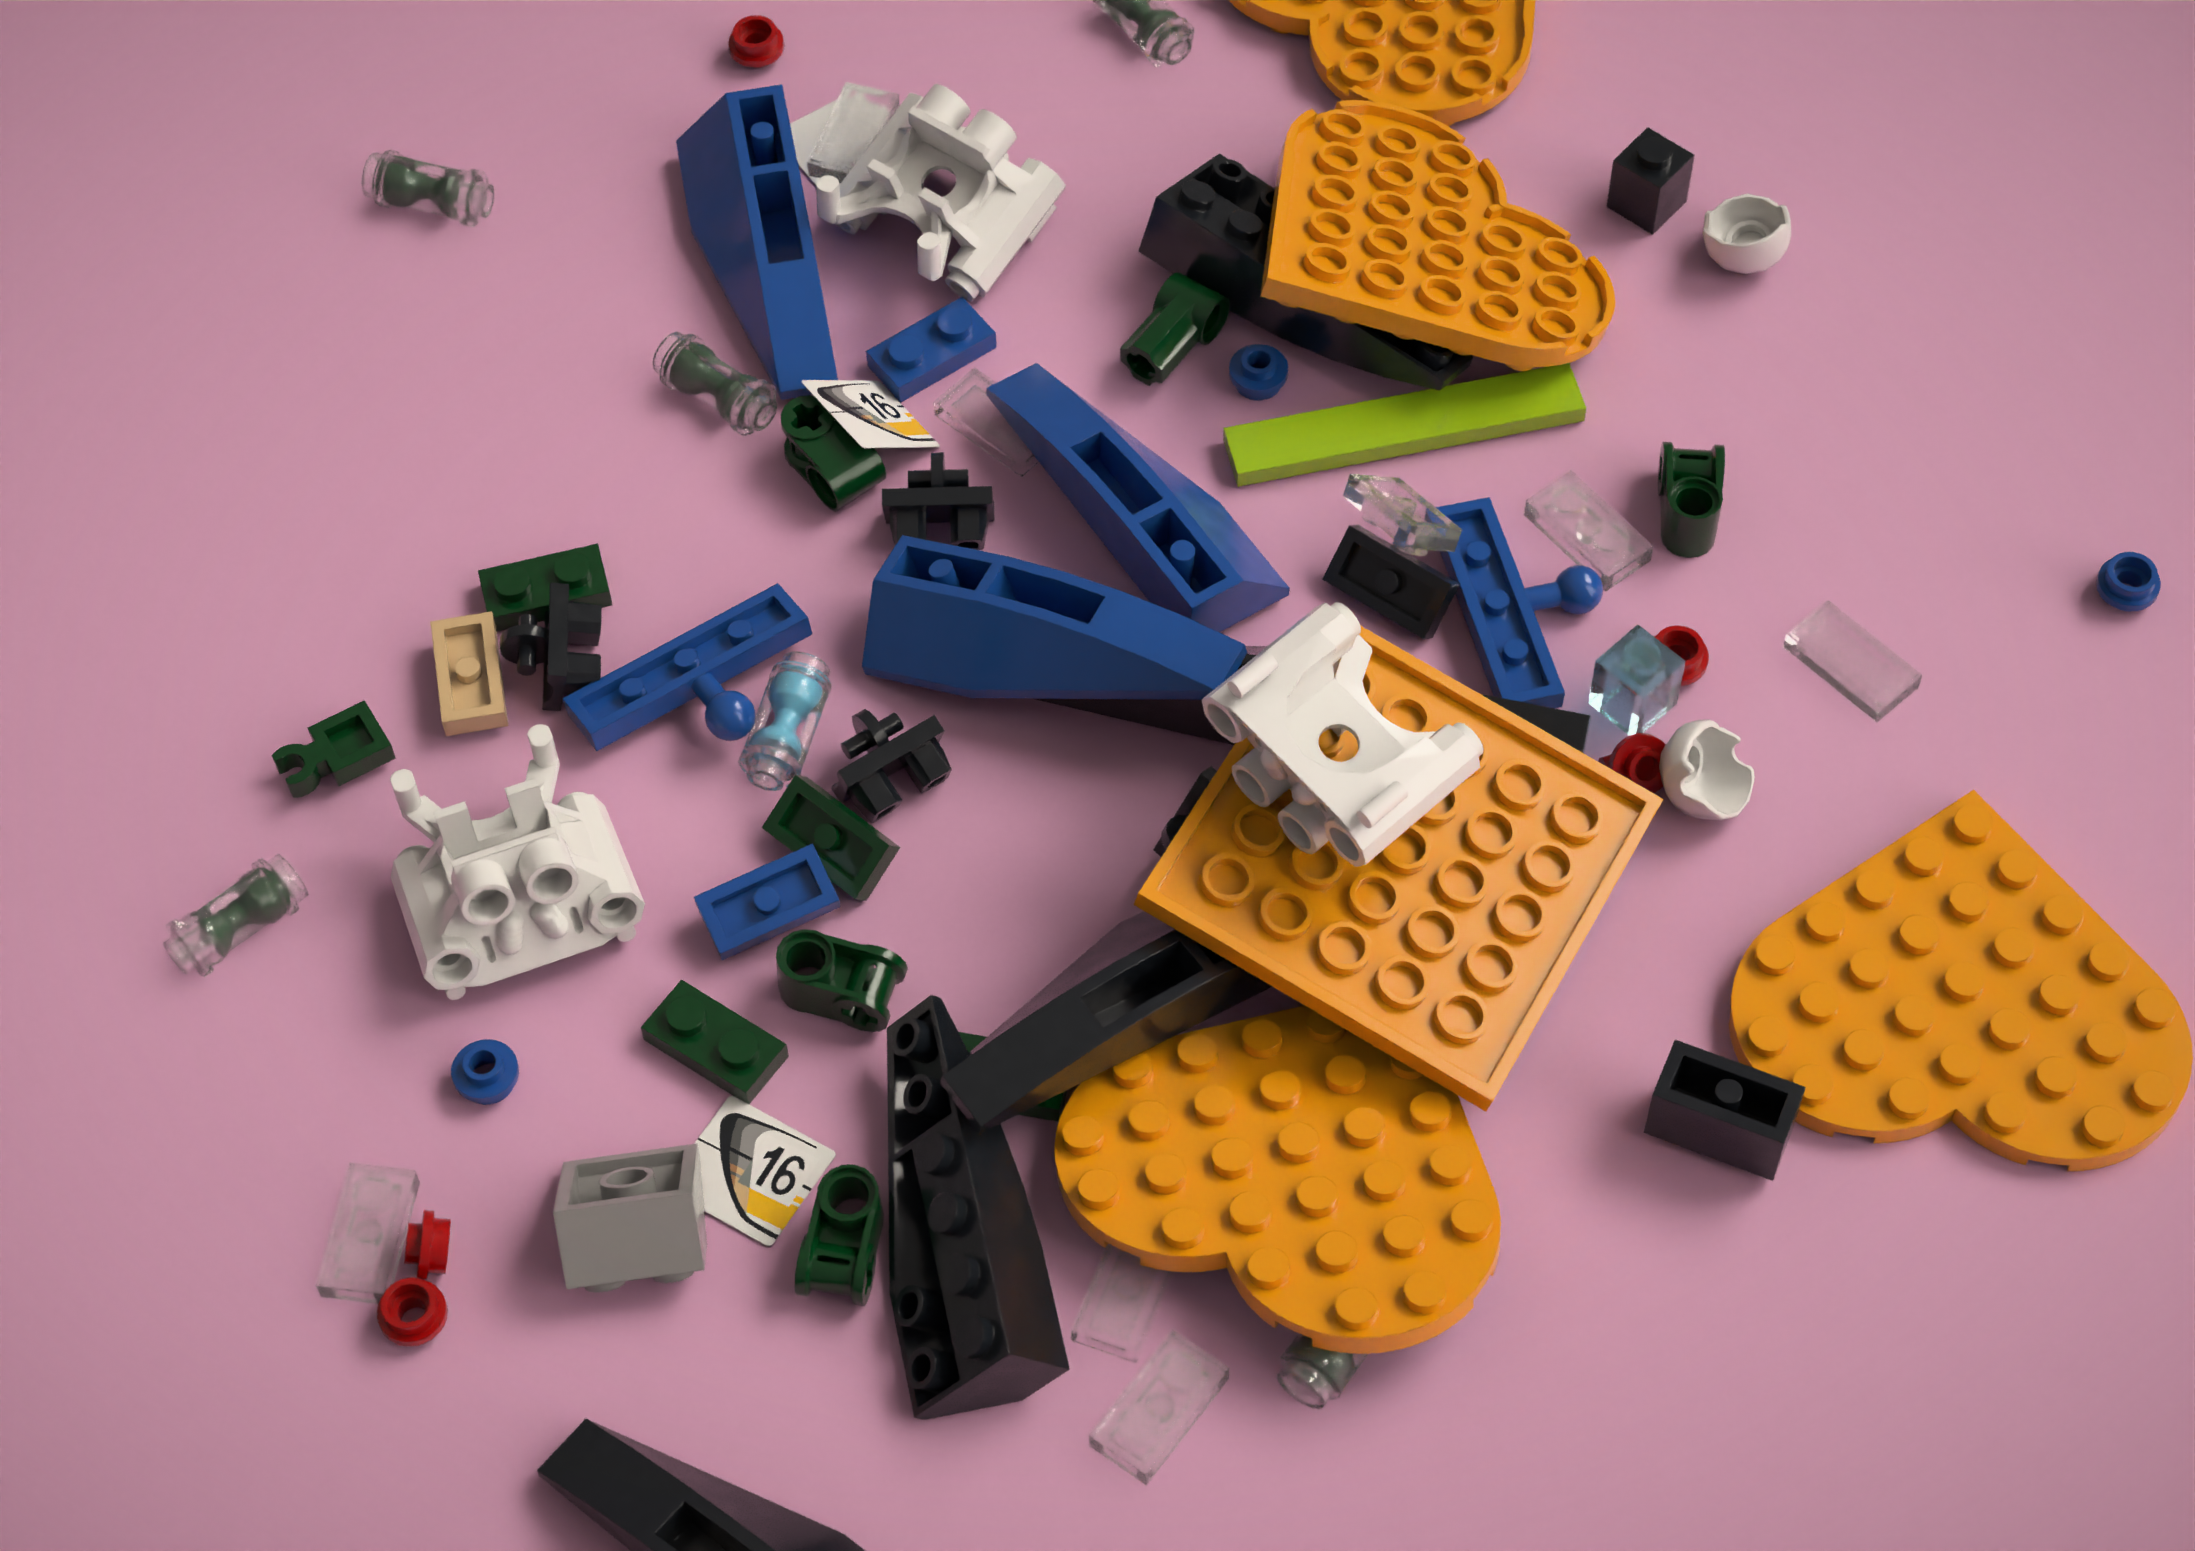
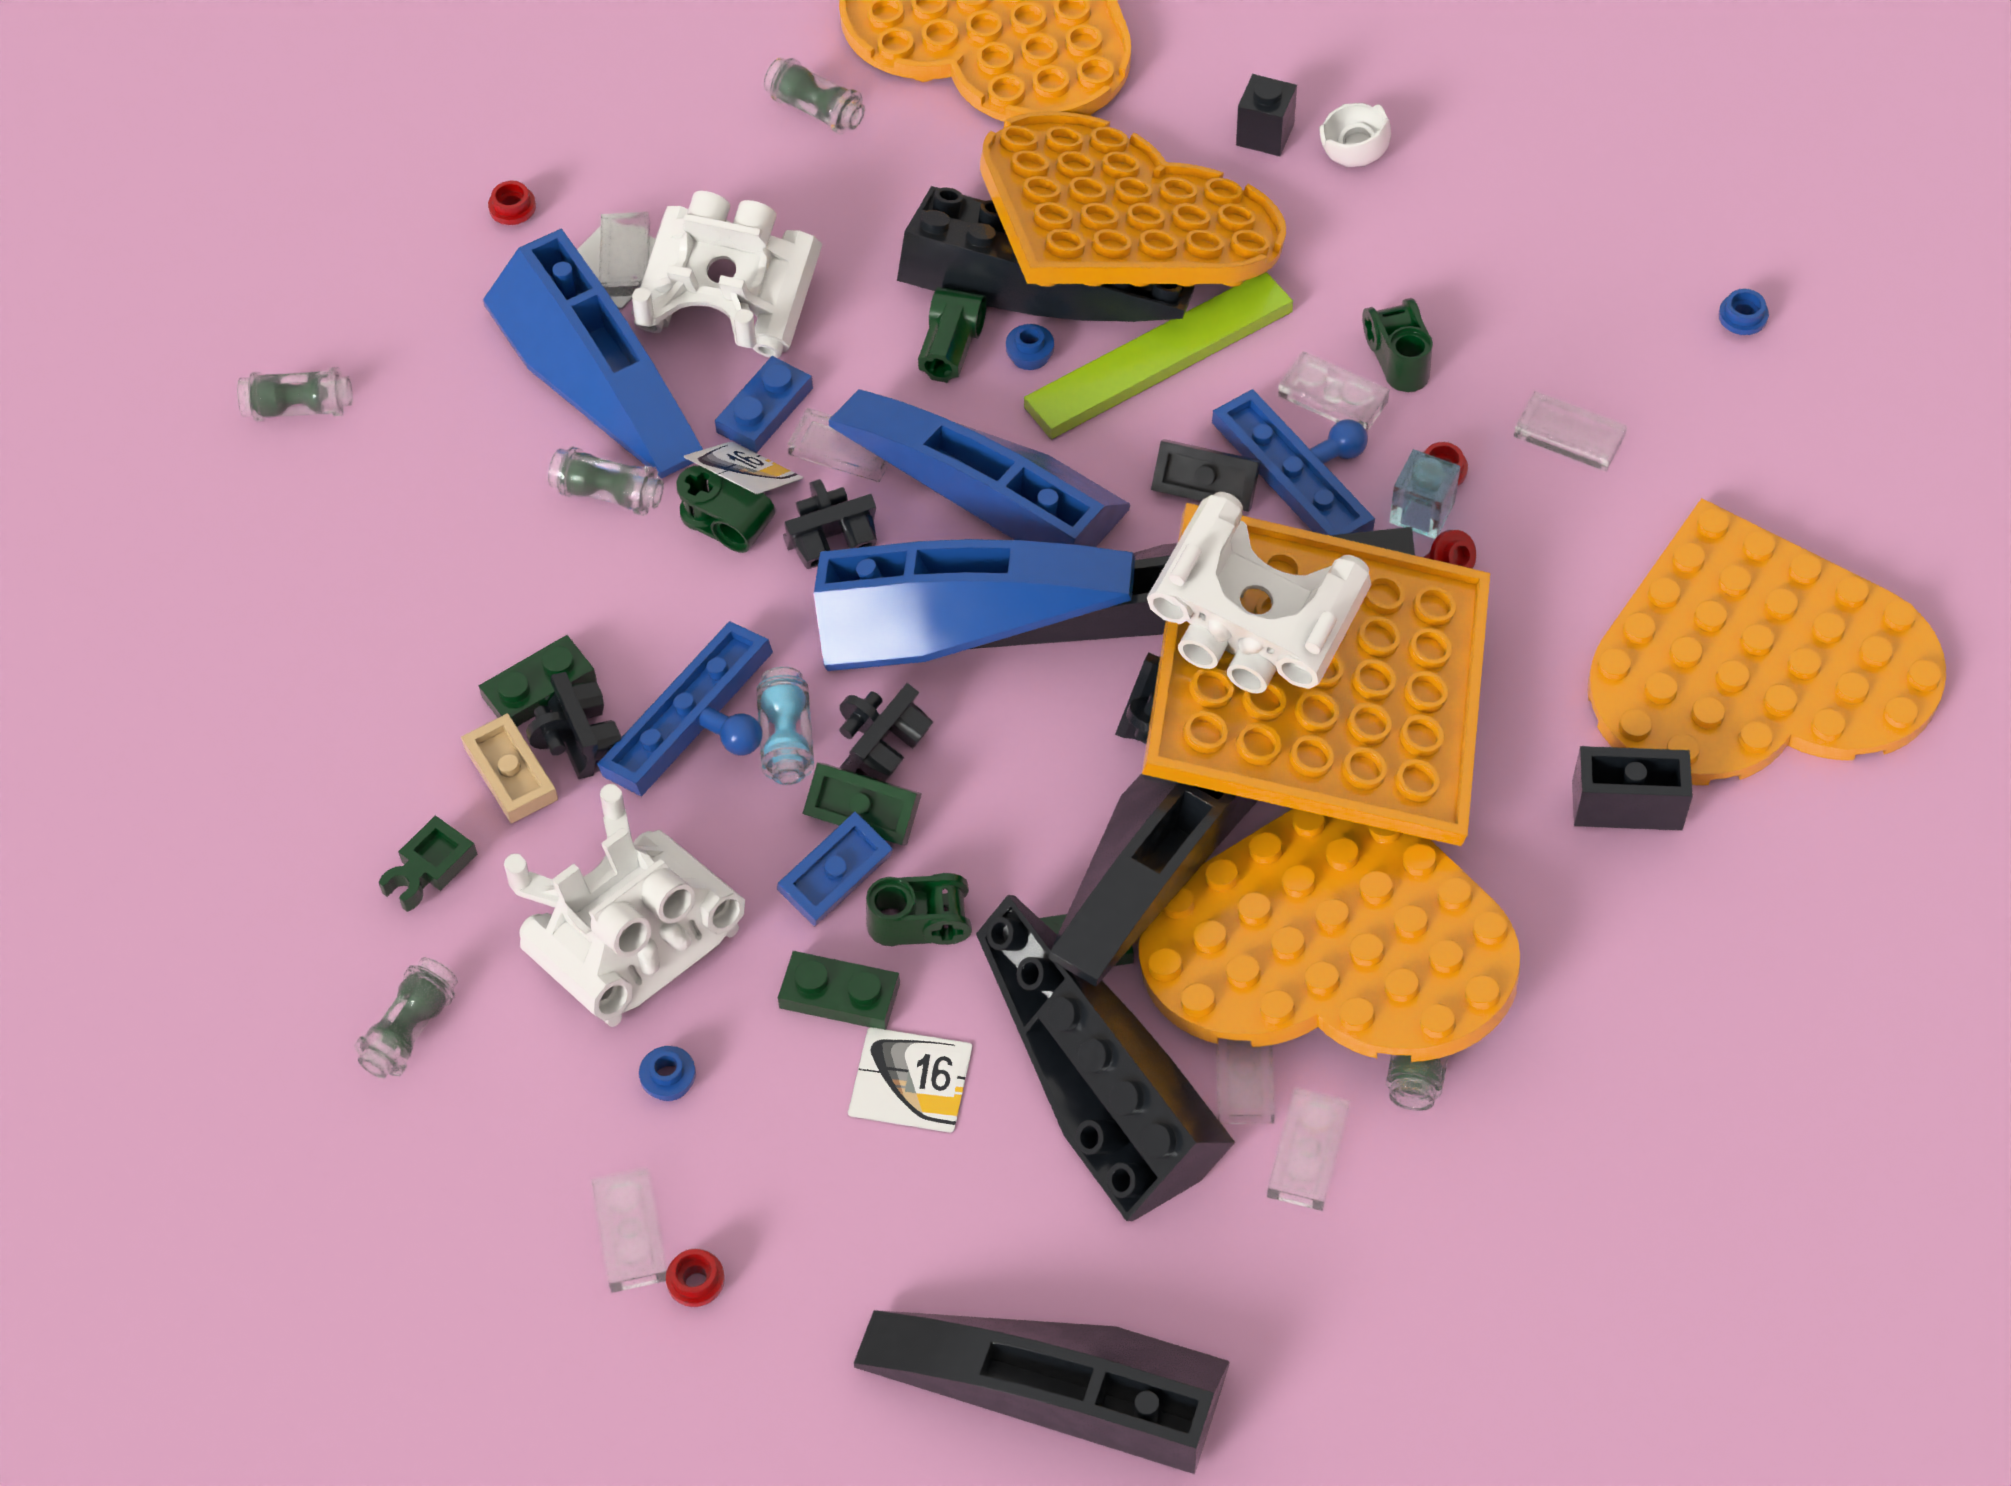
camera: 20 degrees left, 0 degrees up
(428, 1245) = (686, 1221): red plate -> none
(631, 1218) = (841, 1144): light grey slope -> none
(840, 1247) = (1013, 1111): dark green piece -> none
(1402, 514) = (1195, 420): clear plate -> none
(1704, 773) = (1503, 546): white hair -> none

